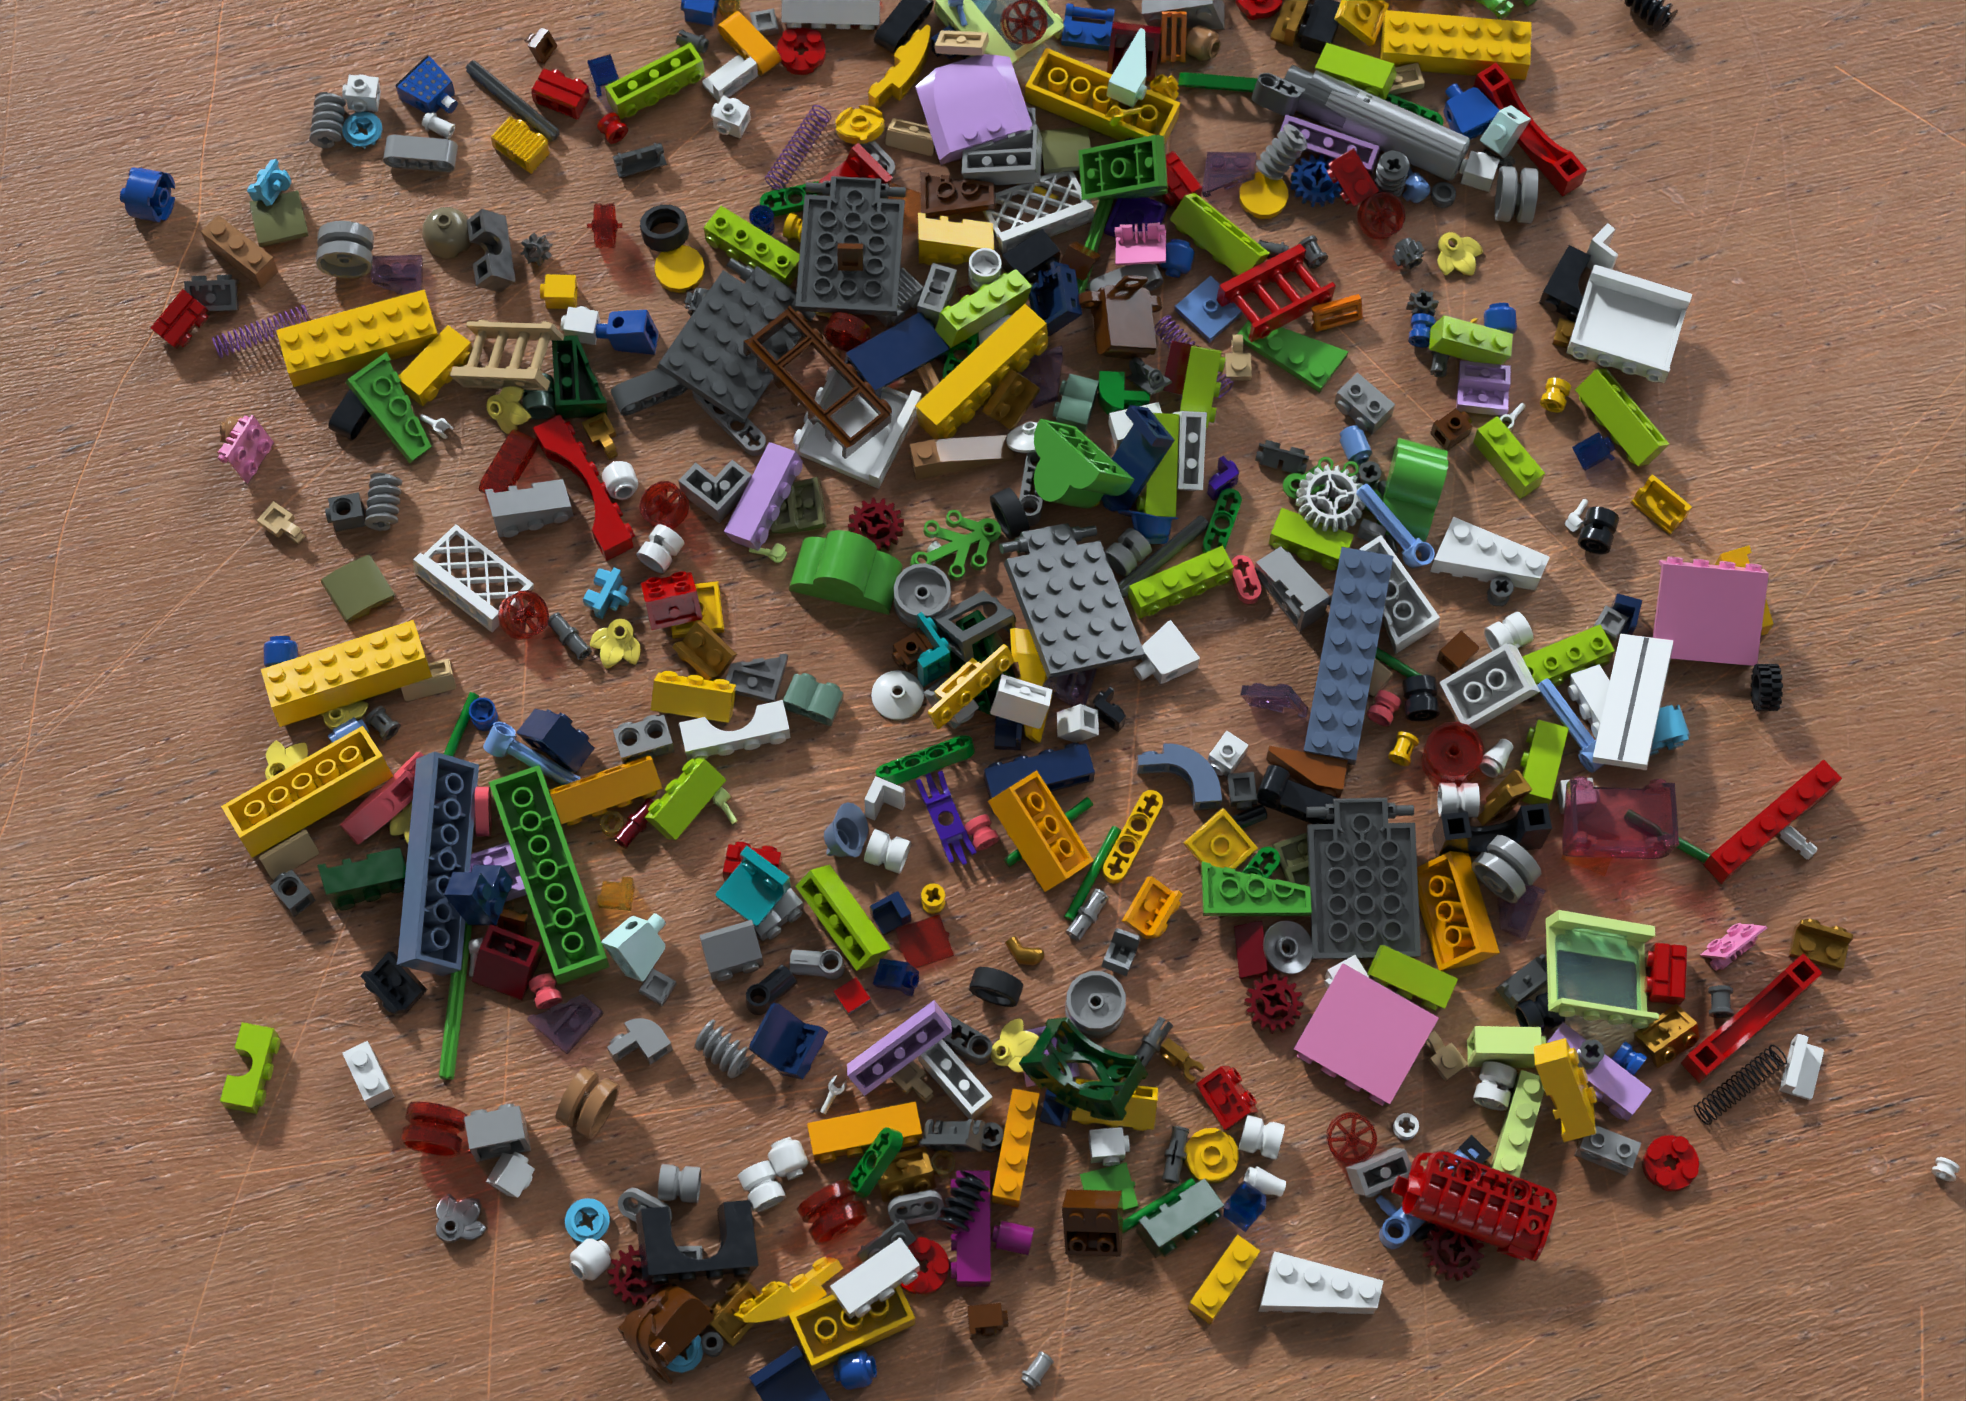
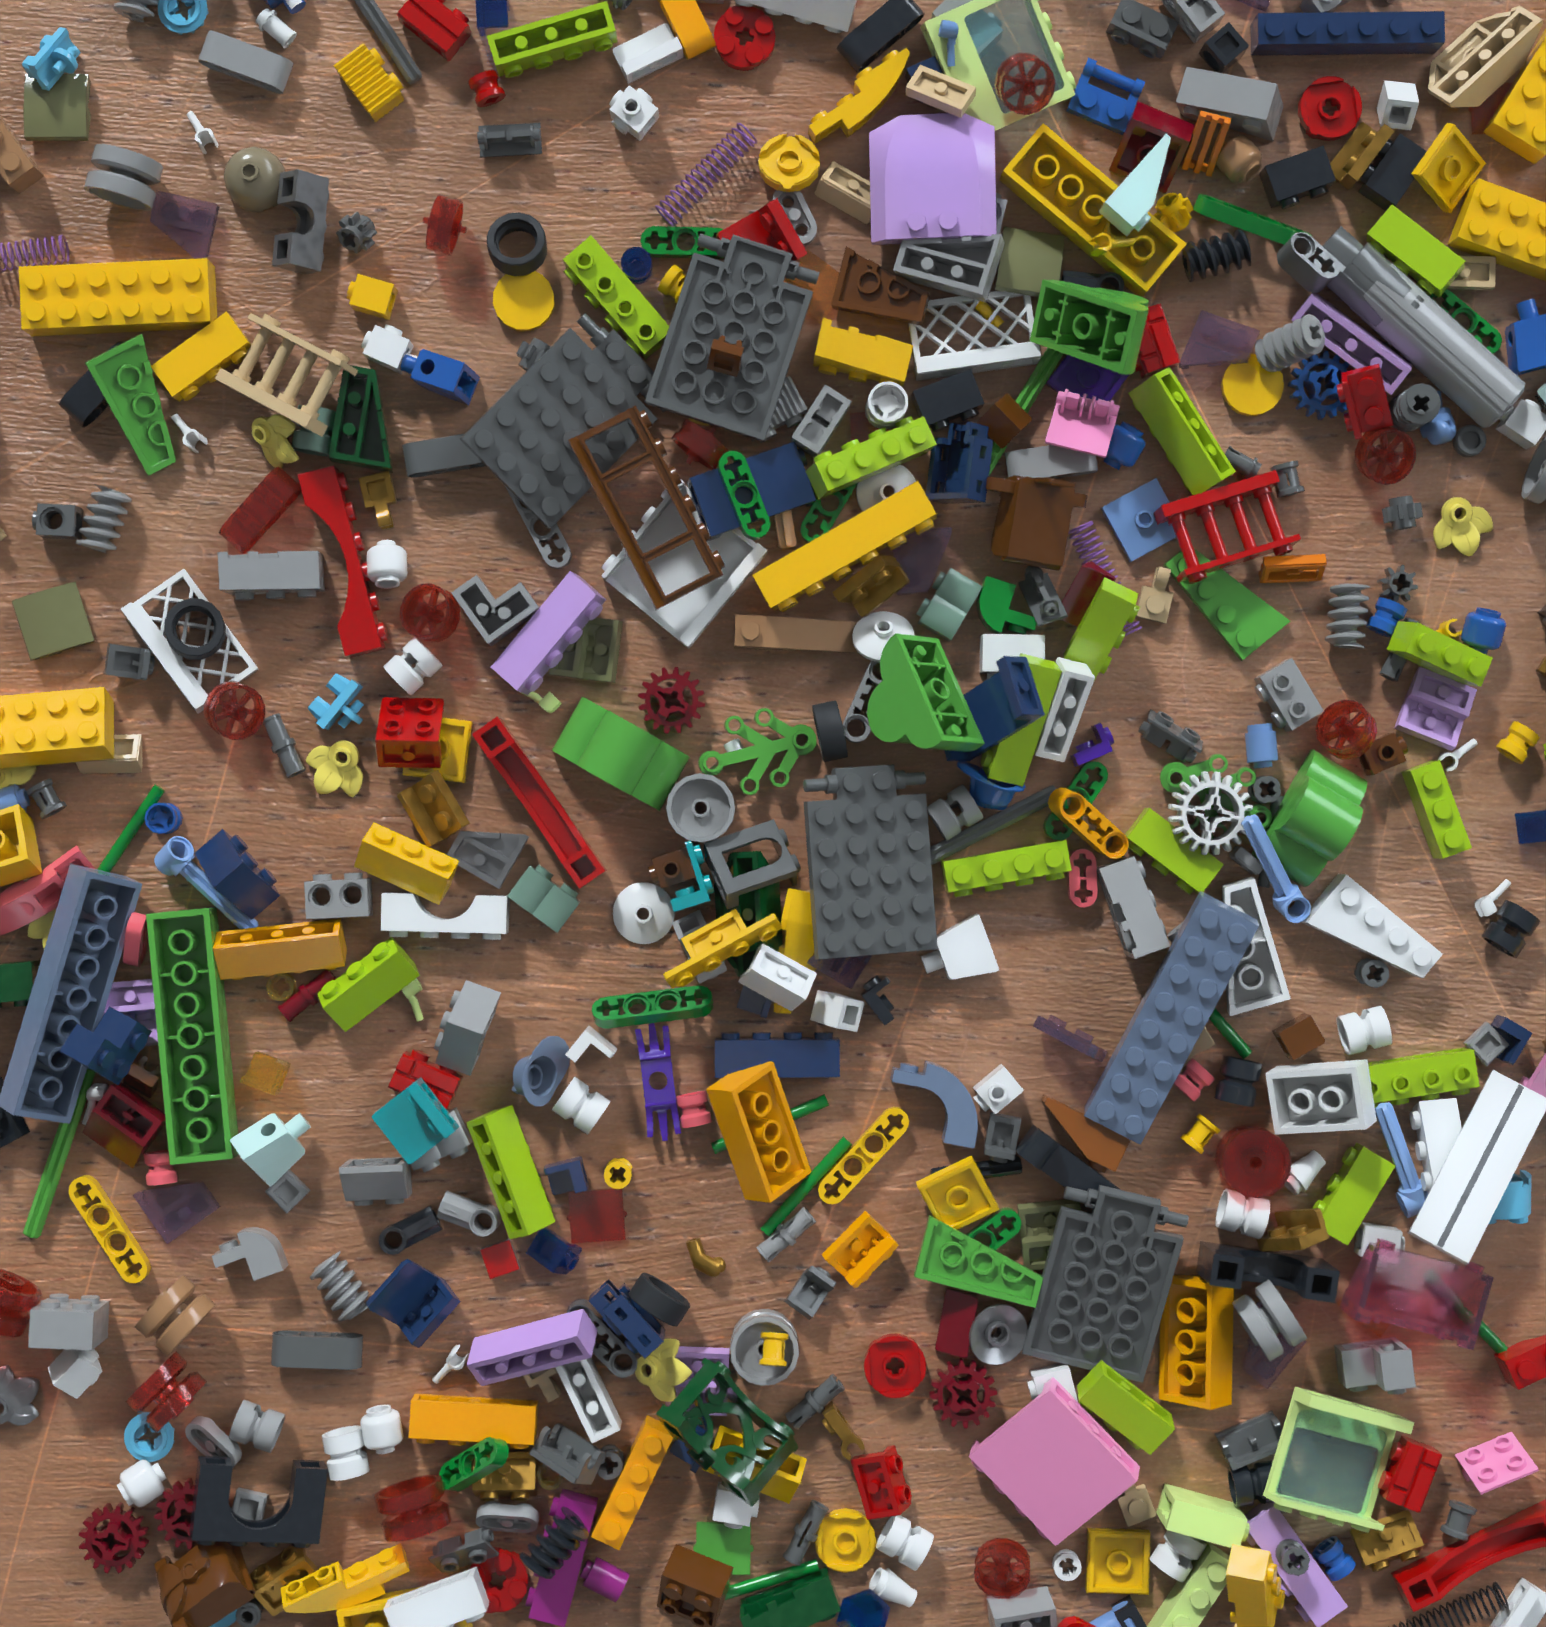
camera: 20 degrees right, 20 degrees up
(399, 211) = (202, 135): none -> white hand
(427, 602) = (128, 662): none -> dark grey bracket
(476, 544) = (187, 606): none -> black tyre
(515, 1053) = (104, 1232): none -> yellow beam
(588, 1313) = (107, 1550): none -> dark red gear
(594, 1168) = (166, 1392): none -> clear red wheel
(715, 1108) = (317, 1350): none -> dark grey beam
(776, 808) = (466, 1027): none -> light grey brick
(815, 646) = (539, 802): none -> red arch
(892, 365) = (760, 513): none -> green beam
(974, 1009) = (626, 1317): none -> dark blue piece
(1103, 992) = (773, 1349): none -> yellow bush
(1201, 1010) = (908, 1376): none -> red plate
(1206, 108) = (1216, 253): none -> black piece
(1236, 531) = (1081, 807): none -> light orange beam
(1250, 45) = (1297, 178): none -> black brick
(1390, 335) = (1346, 615): none -> light grey piece
(1416, 416) = (1346, 730): none -> clear red wheel
(1448, 1113) = (1117, 1561): none -> yellow tile
(1611, 889) = (1375, 1362): none -> light grey brick

